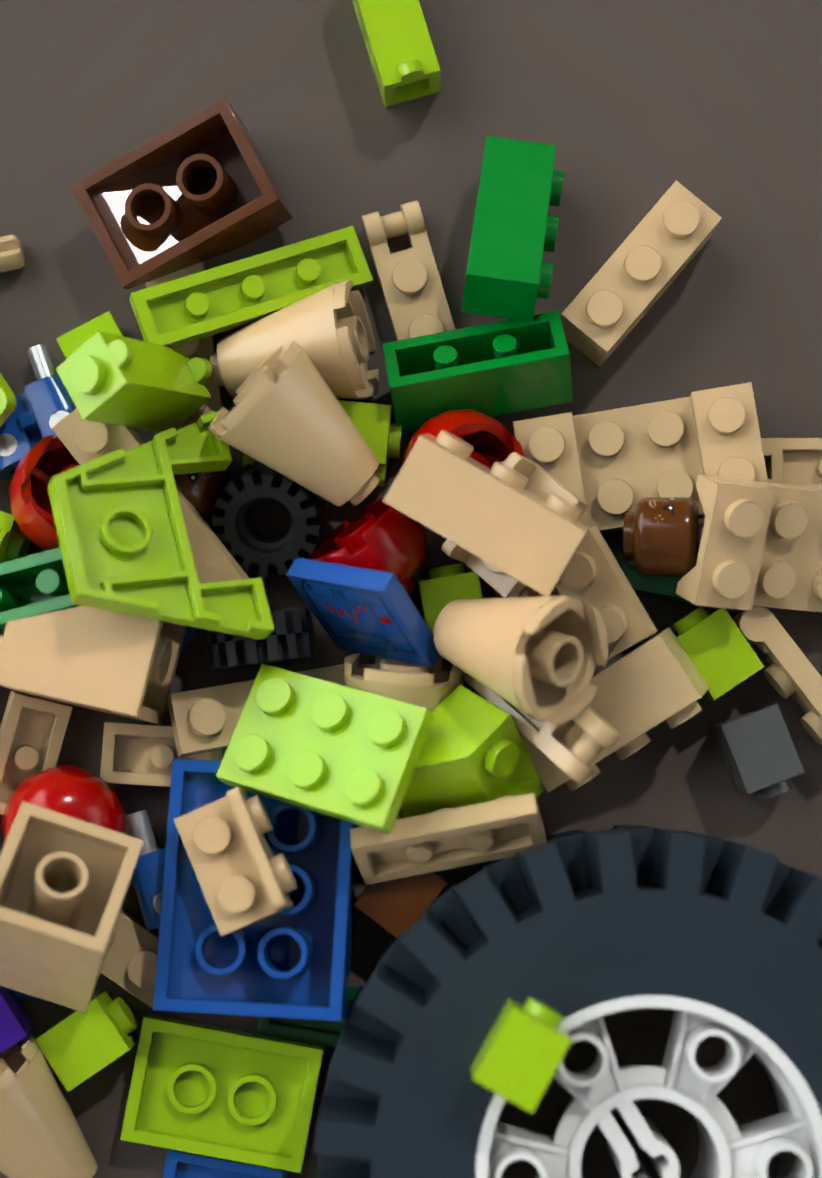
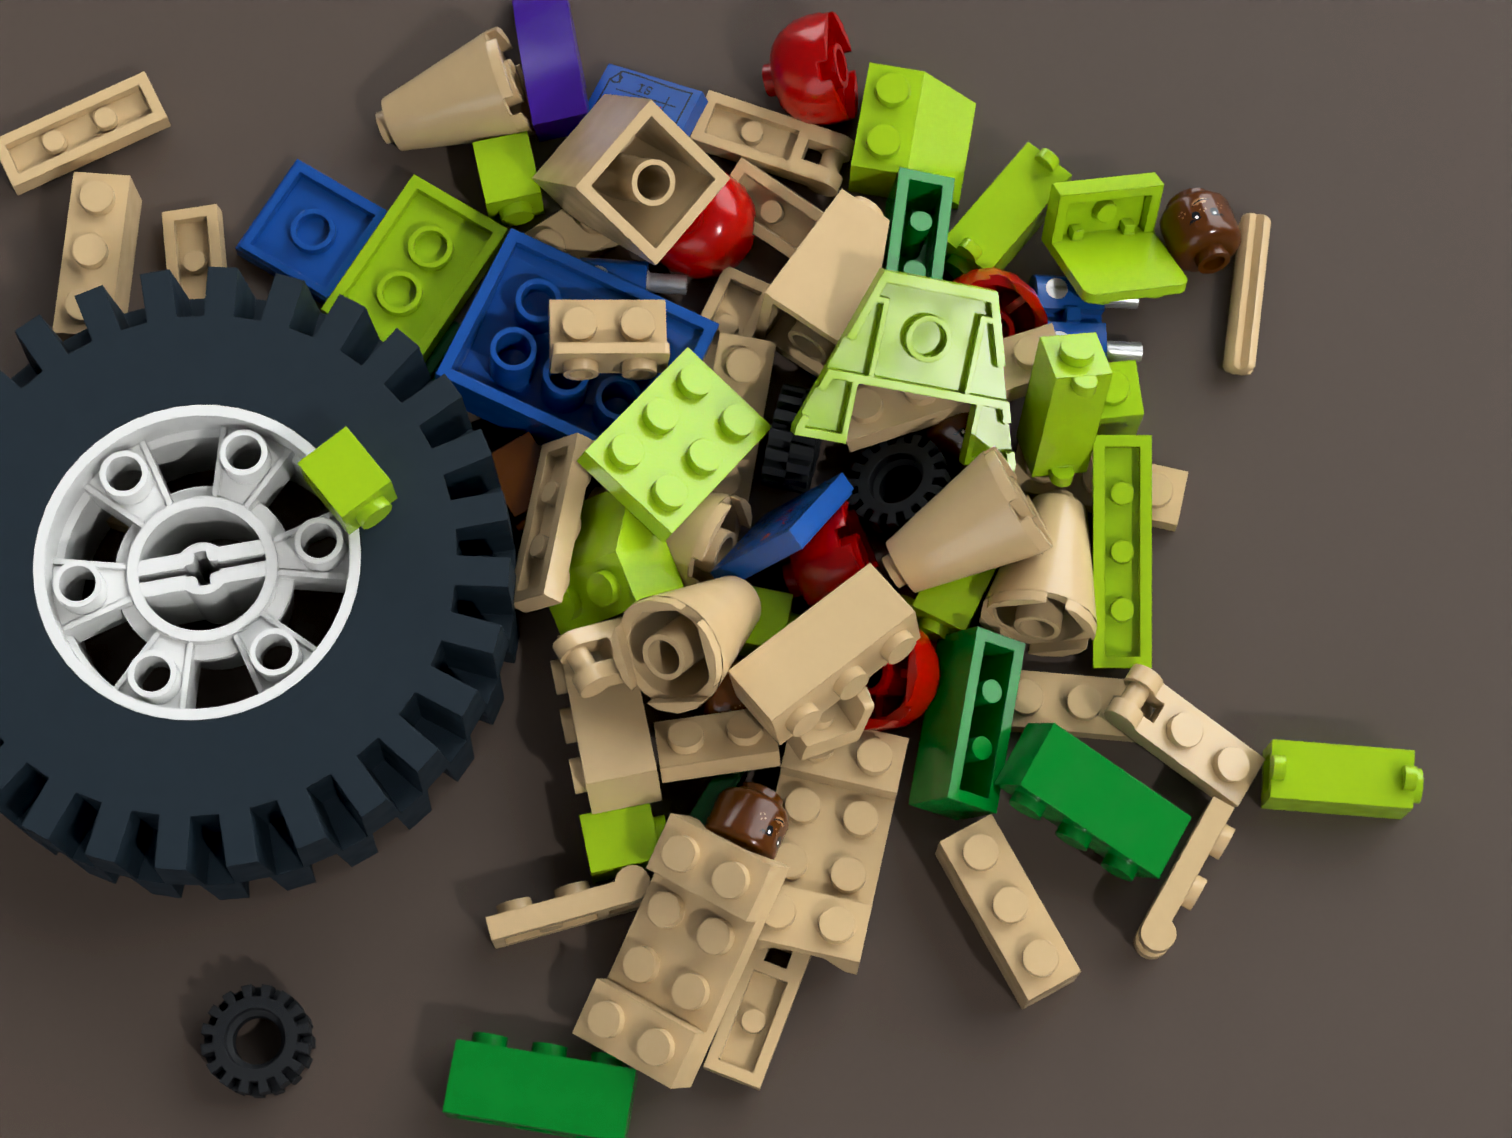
camera: 110 degrees right, 10 degrees down
(182, 197) = (1231, 523): reddish brown slope -> none
(409, 171) = (1184, 737): none -> tan plate
(575, 136) = (1183, 883): none -> tan plate
(759, 752) = (515, 845): dark grey brick -> none

